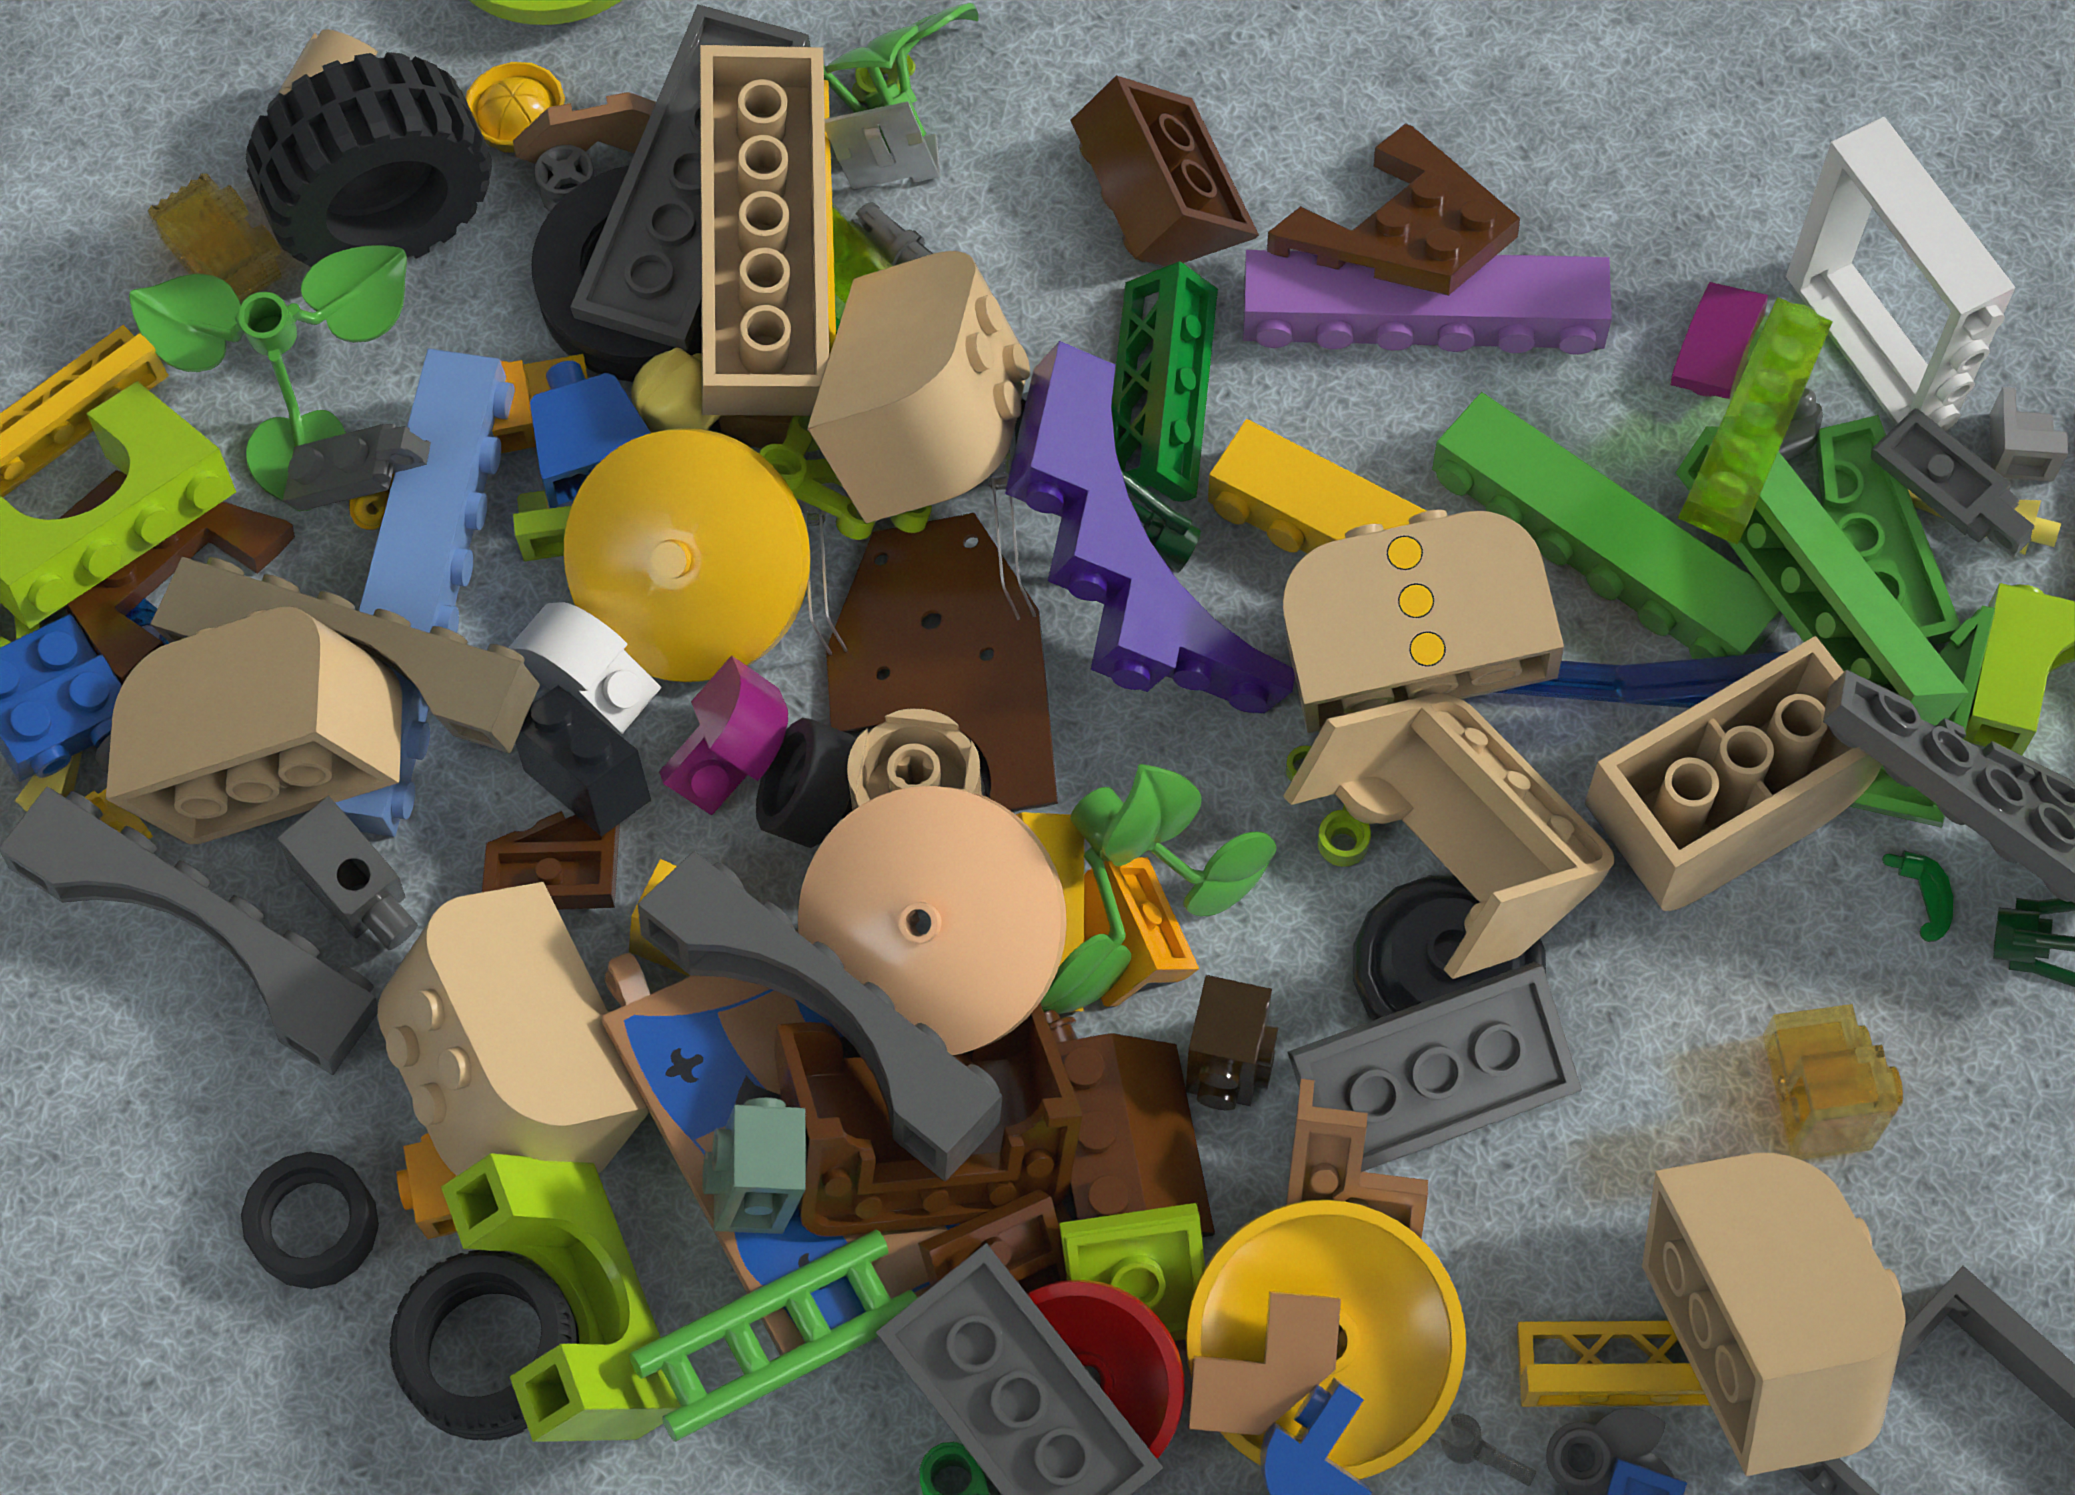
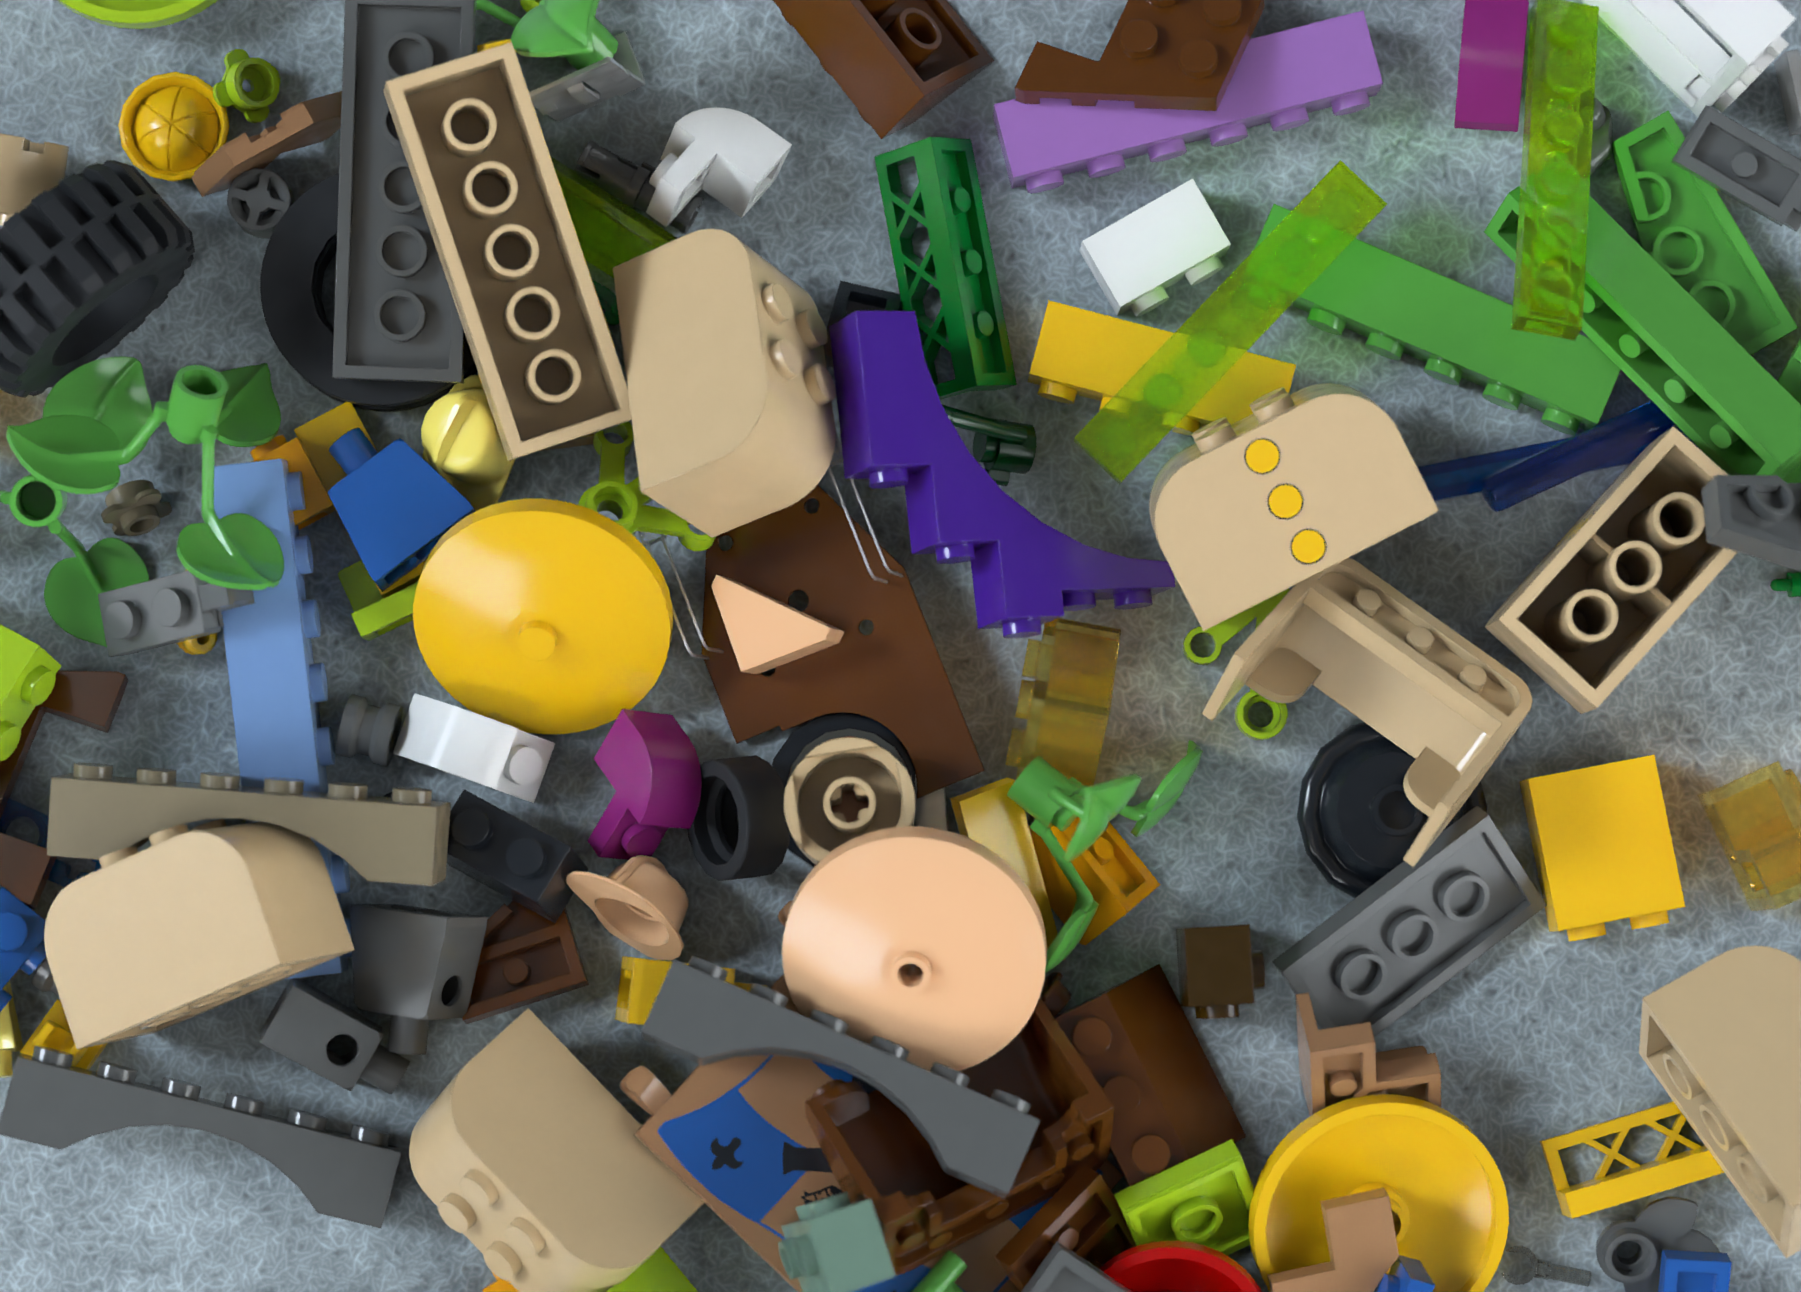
camera: 20 degrees left, 20 degrees up
(357, 390) = (135, 508): none -> dark tan plate
(430, 287) = (204, 406): none -> bright green plant
(454, 833) = (414, 967): none -> dark grey torso
(491, 622) = (369, 730): none -> dark grey wheel
(594, 75) = (263, 81): none -> lime plate
(677, 822) = (637, 905): none -> light nougat piece
(896, 630) = (767, 630): none -> light nougat slope
(989, 229) = (720, 153): none -> white brick
(1163, 735) = (1067, 699): none -> clear yellow brick
(1362, 410) = (1155, 249): none -> white brick
(1410, 468) = (1229, 322): none -> clear neon green plate
(1653, 1047) = (1602, 847): none -> yellow brick

